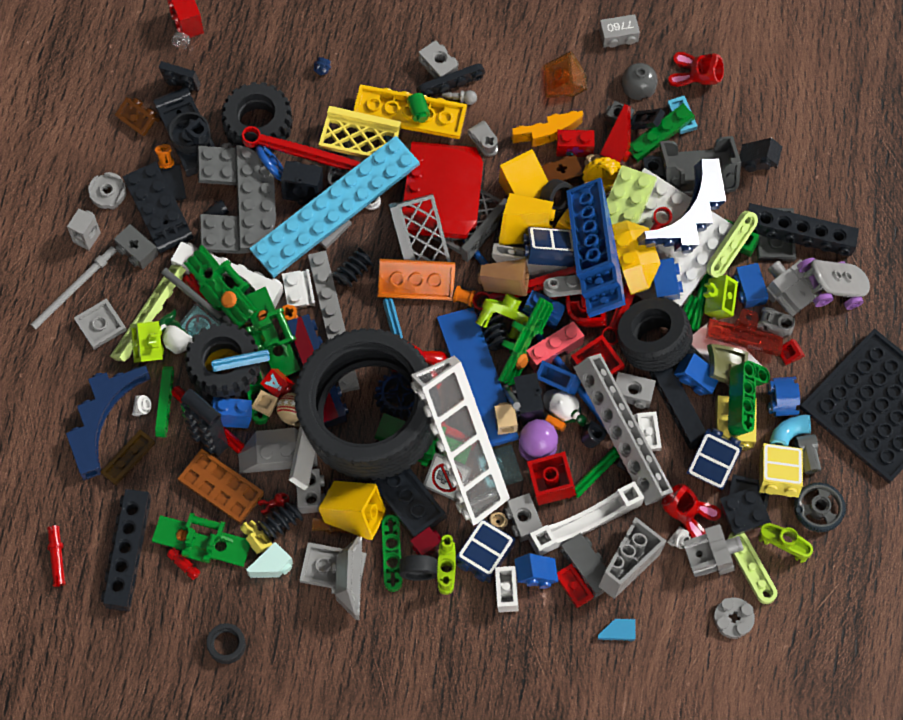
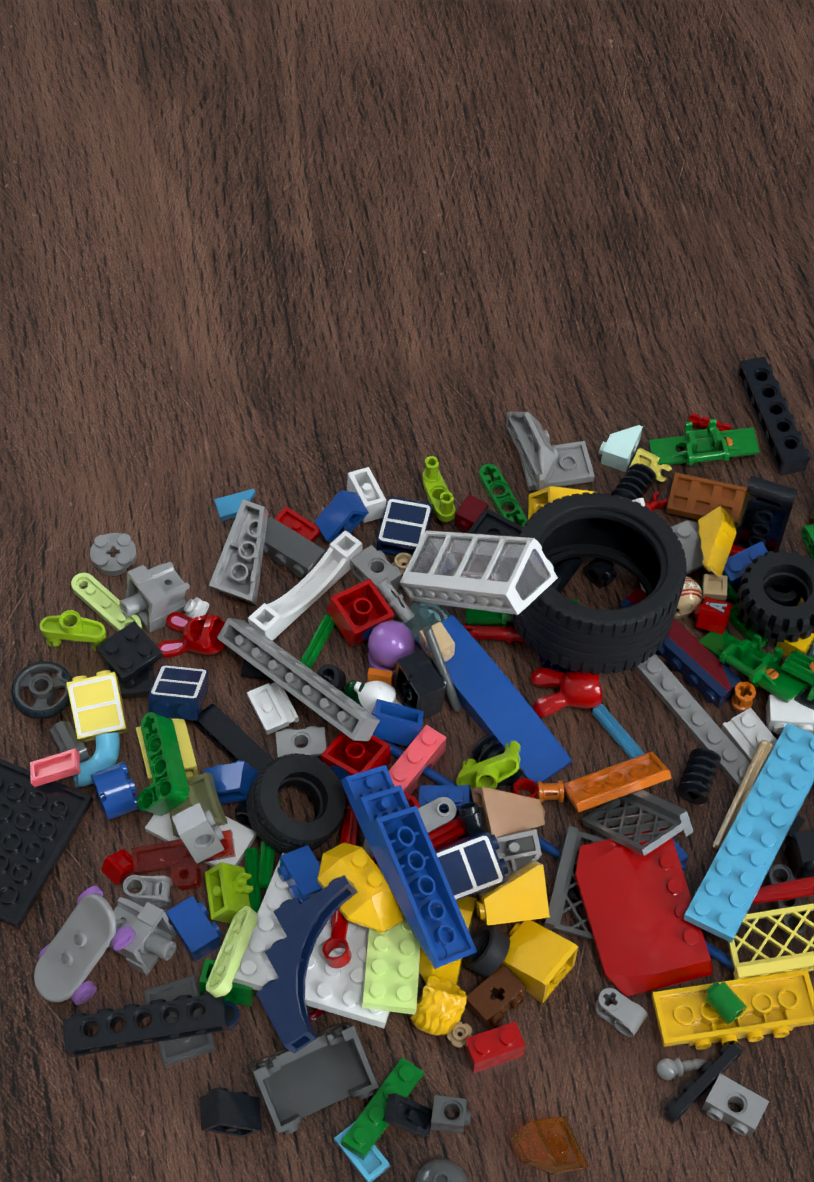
camera: 160 degrees right, 10 degrees down
(221, 628) = (630, 358): black tyre -> none
(240, 360) = (762, 581): dark azure axle -> none
(245, 433) = (717, 537): none -> yellow slope
(329, 243) = (756, 765): none -> tan axle
(418, 567) = (464, 474): black tyre -> none
(524, 486) = (395, 600): none -> light grey pin
(534, 275) = (471, 818): none -> black cone
(534, 326) = (457, 736): green piece -> none
(546, 133) = (532, 1063): light orange slope -> none
(619, 139) = (434, 1066): red slope -> none
(654, 162) = (376, 1036): black brick -> none
(734, 324) = (198, 832): none -> light grey brick
(824, 429) = (55, 767): none -> coral tile

